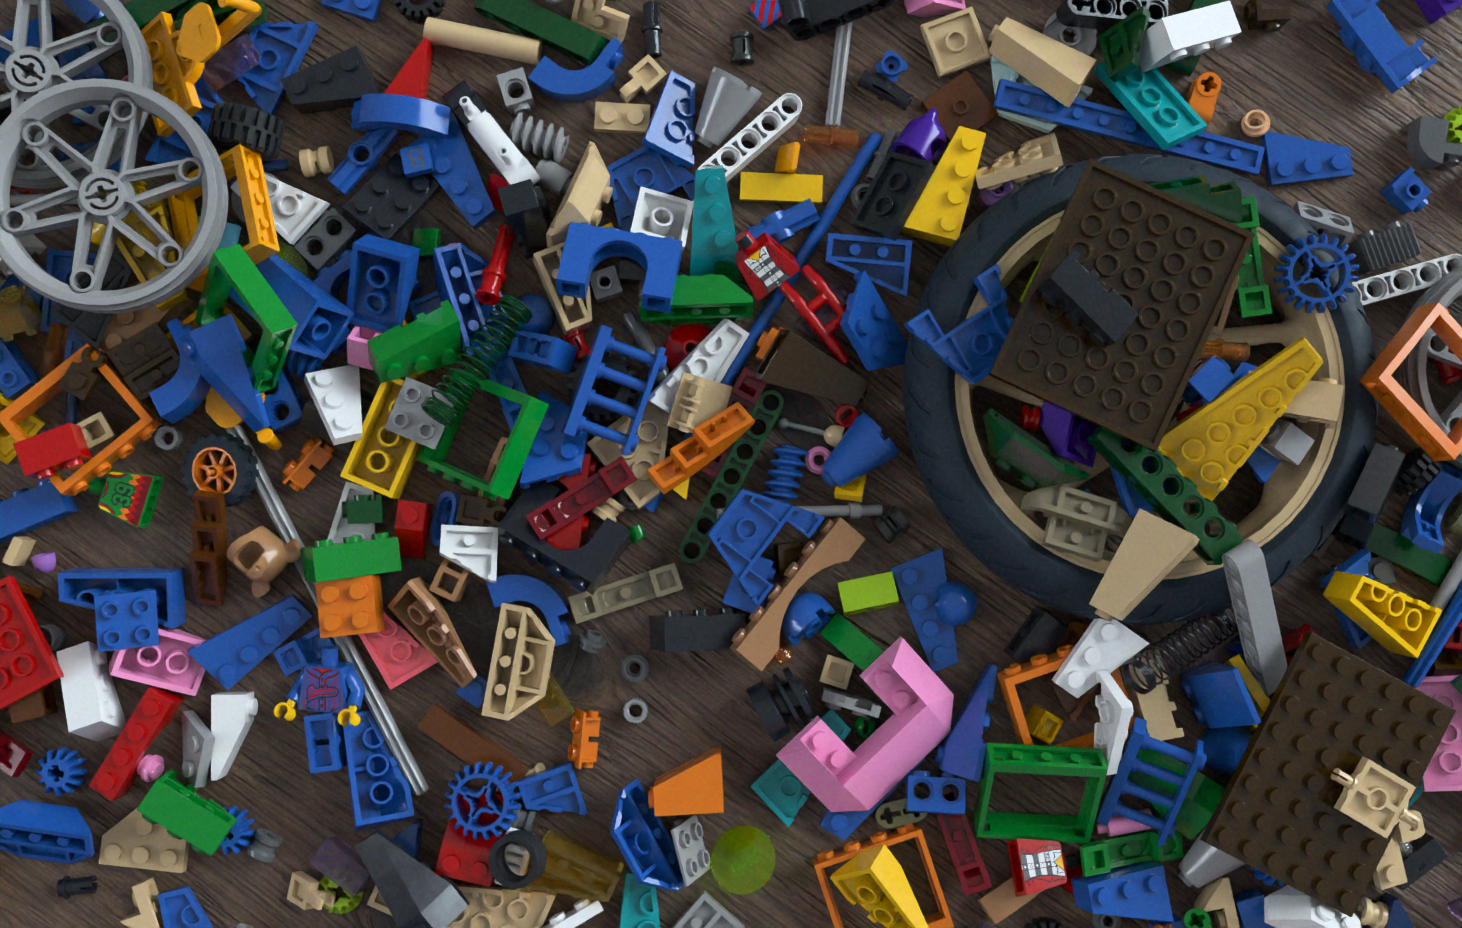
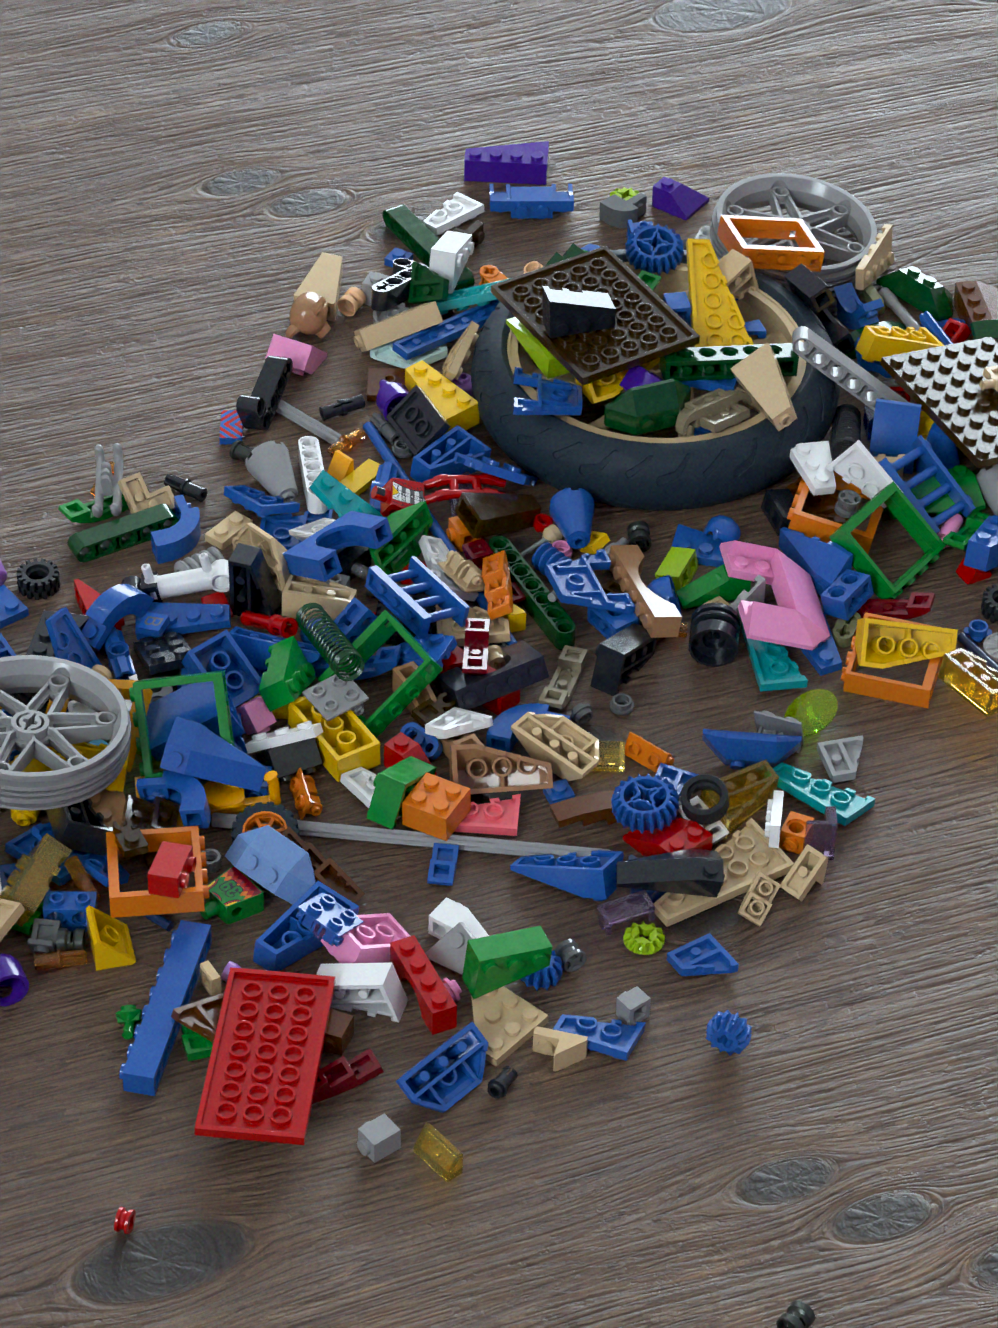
camera: 55 degrees left, 45 degrees down
(61, 781) = (403, 1041): blue gear -> none
(168, 510) = (273, 862): none -> medium blue wedge
(240, 648) = (407, 888): blue wing -> none
(262, 557) = (355, 842): medium nougat piece -> none
(304, 892) = (626, 949): tan plate -> none
(320, 115) = (68, 639): none -> blue wing
(324, 742) = (522, 876): blue brick -> none
(326, 687) = (485, 851): blue torso -> none
(364, 509) = (372, 764): dark green brick -> none
(483, 40) = (105, 562): tan piece -> none
(516, 80) = (158, 559): light grey brick -> none
(635, 701) = (652, 726): light grey axle -> none
(644, 76) = (214, 504): tan plate -> none
(690, 787) = (736, 698): orange slope -> none
(891, 58) = (327, 396): blue plate -> none
(955, 42) = (344, 364): tan plate -> none
(1002, 901) = (952, 603): medium nougat slope -> none
(1038, 865) = (938, 575): torso -> none
(1065, 729) = (847, 503): none -> dark grey wheel
(1287, 441) = (750, 305): light grey brick -> none

